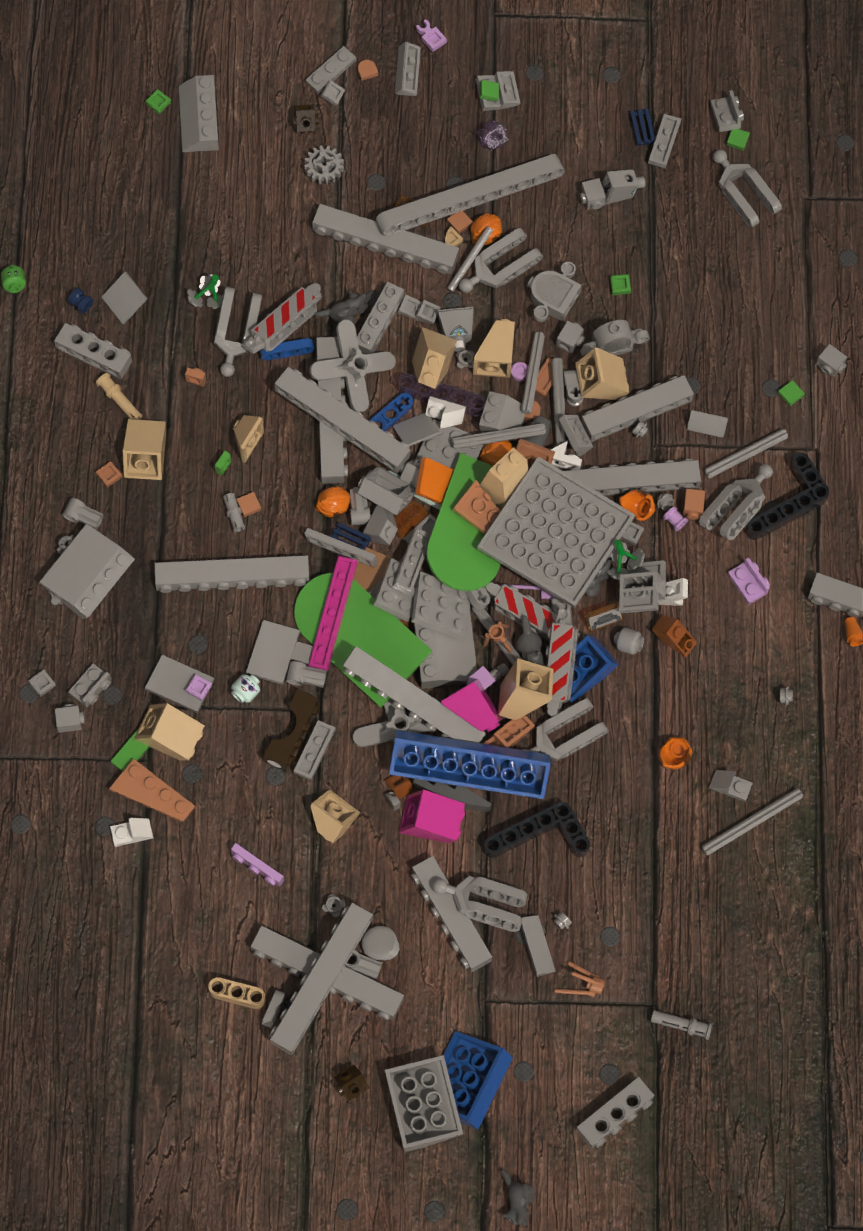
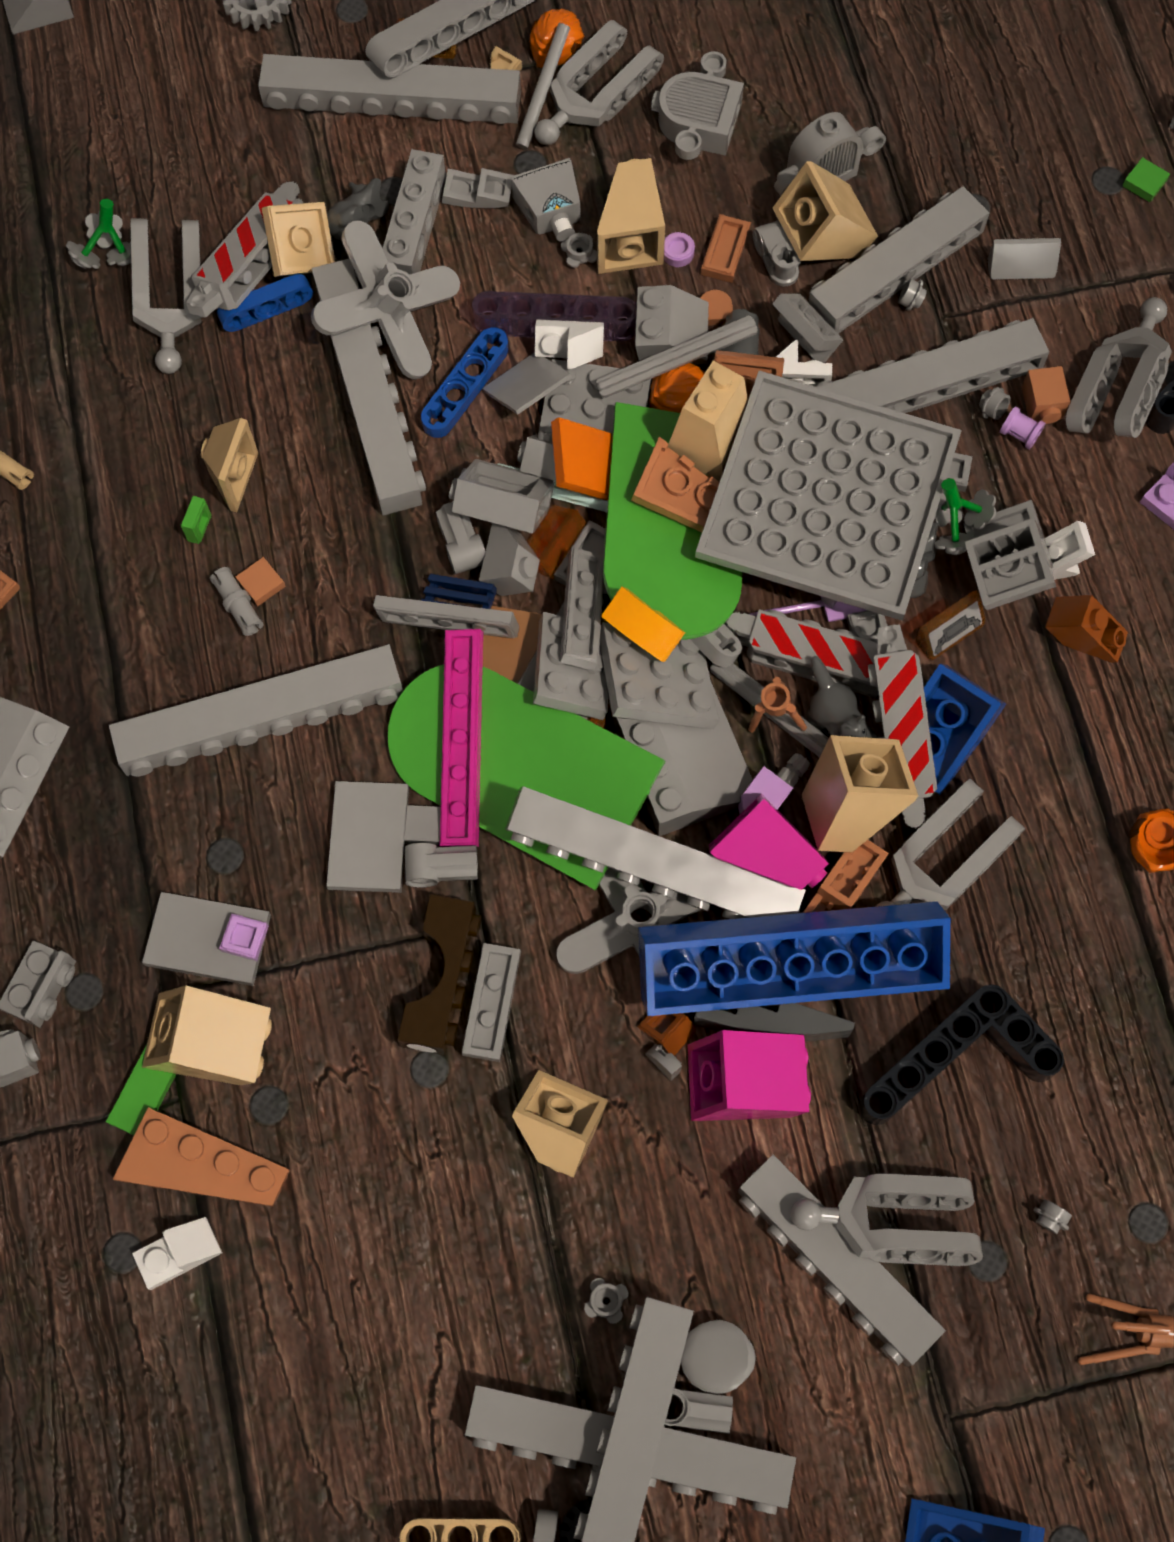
camera: 10 degrees left, 0 degrees up
(144, 449) = (47, 529): tan slope -> none
(195, 376) = (113, 384): nougat plate -> none
(245, 688) = (333, 916): light aqua head -> none
(256, 866) = (436, 1260): lavender plate -> none
(313, 319) = (298, 237): none -> tan tile
(333, 501) = (411, 540): orange hair -> none
(342, 419) = (392, 391): light grey brick -> none
(432, 357) = (522, 252): tan slope -> none
(439, 578) = (643, 624): none -> light orange slope
(459, 221) = (508, 36): nougat tile -> none
(532, 373) = (702, 244): light grey axle -> none
(537, 945) = (1020, 1281): light grey slope -> none
(558, 397) = (759, 278): light grey axle -> none
(570, 337) = (748, 173): light grey brick -> none
(620, 284) = (805, 75): bright green tile -> none
(629, 641) = (1010, 657): light grey head -> none
(638, 503) = (957, 411): orange hair -> none
(746, 453) = (1104, 293): light grey axle -> none

